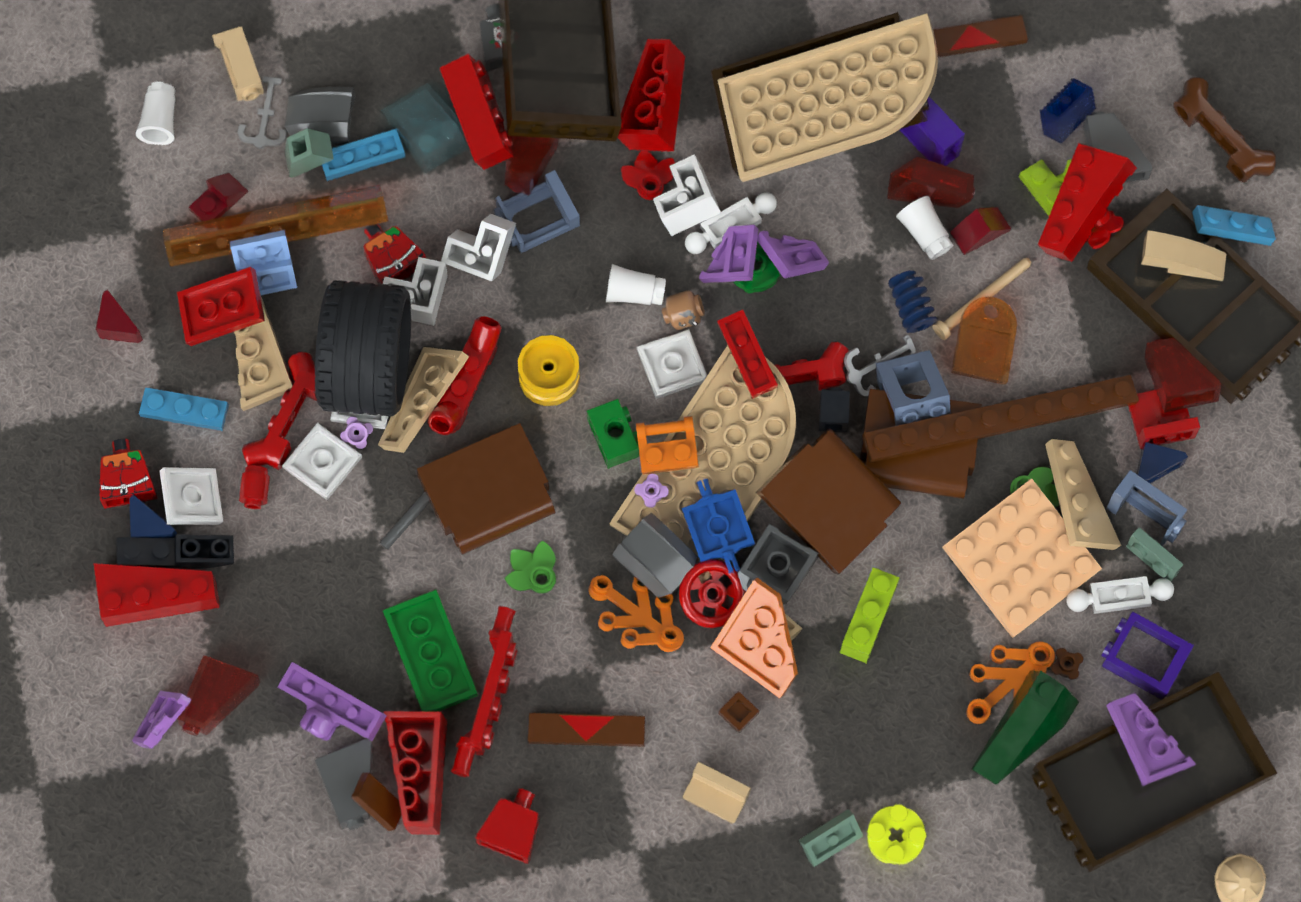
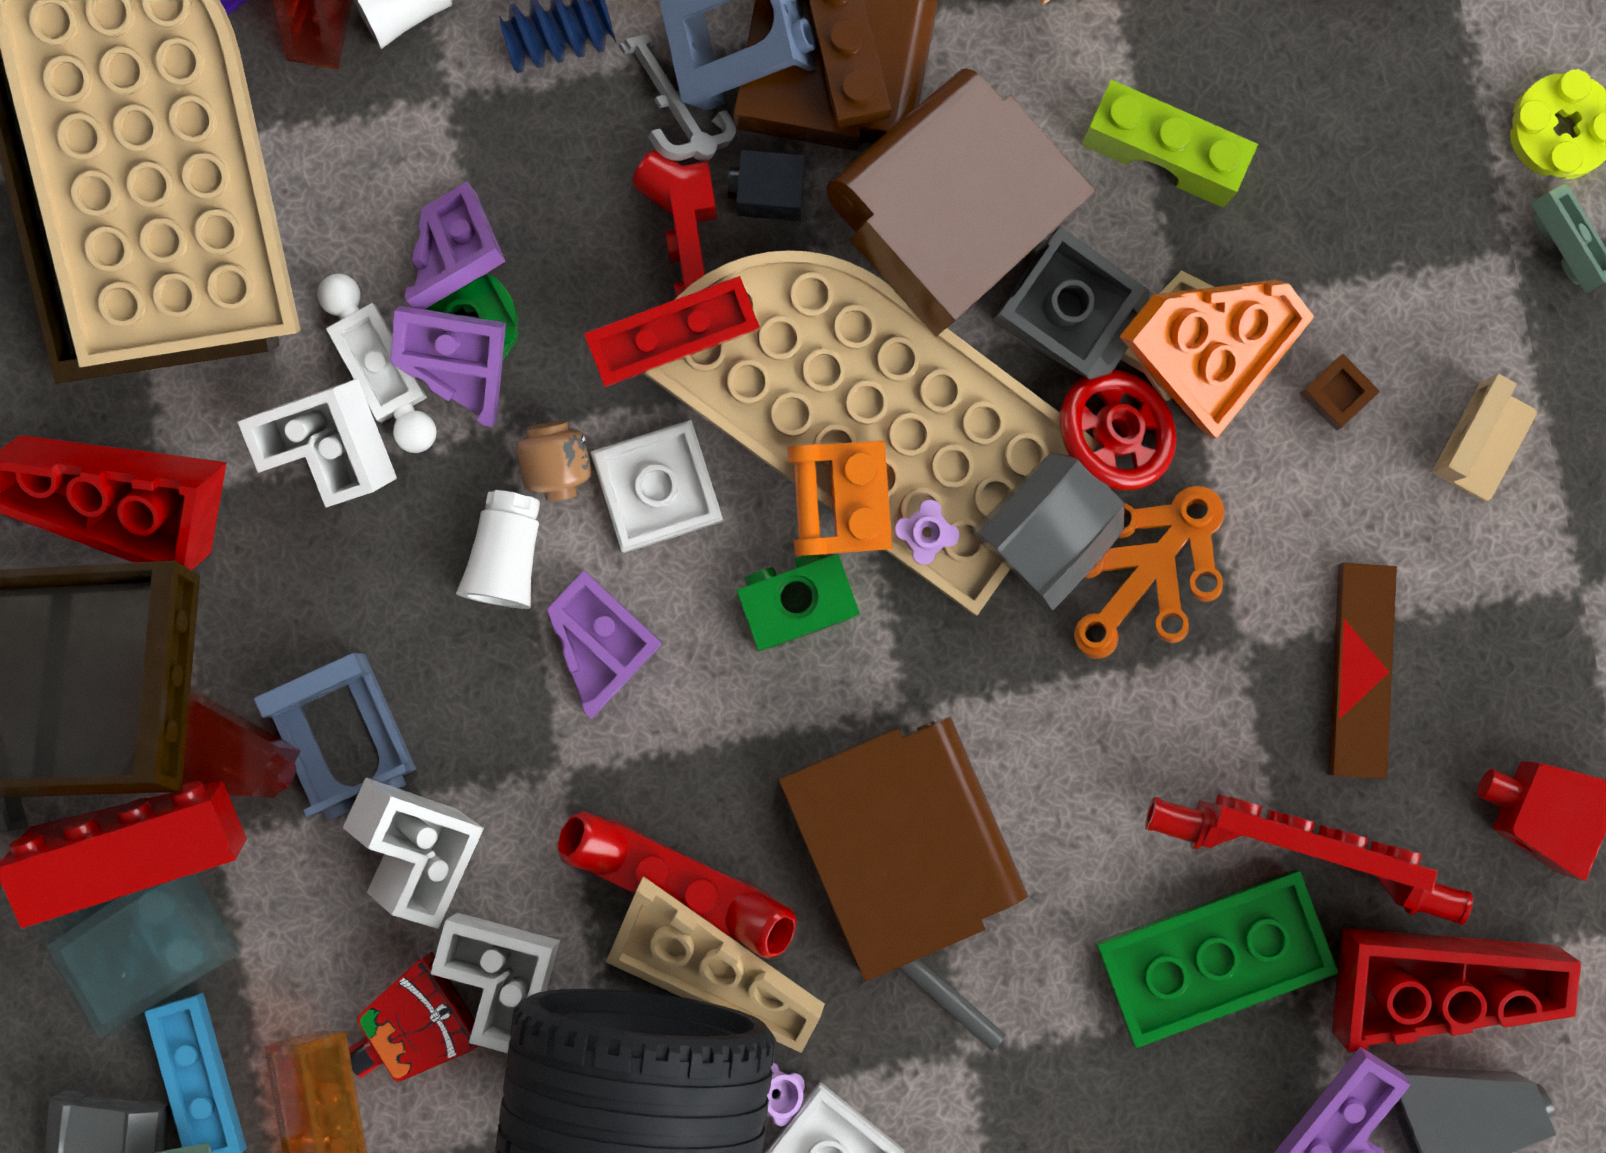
camera: 90 degrees left, 15 degrees up
(377, 801) = (1514, 1067): reddish brown tile -> none
(530, 566) = (1049, 768): bright green plate -> none
(534, 372) = (637, 723): yellow wheel -> none
(592, 336) = (599, 641): none -> medium lavender wing
(648, 171) = (260, 517): red plate -> none
(718, 526) = (1003, 408): blue plate -> none

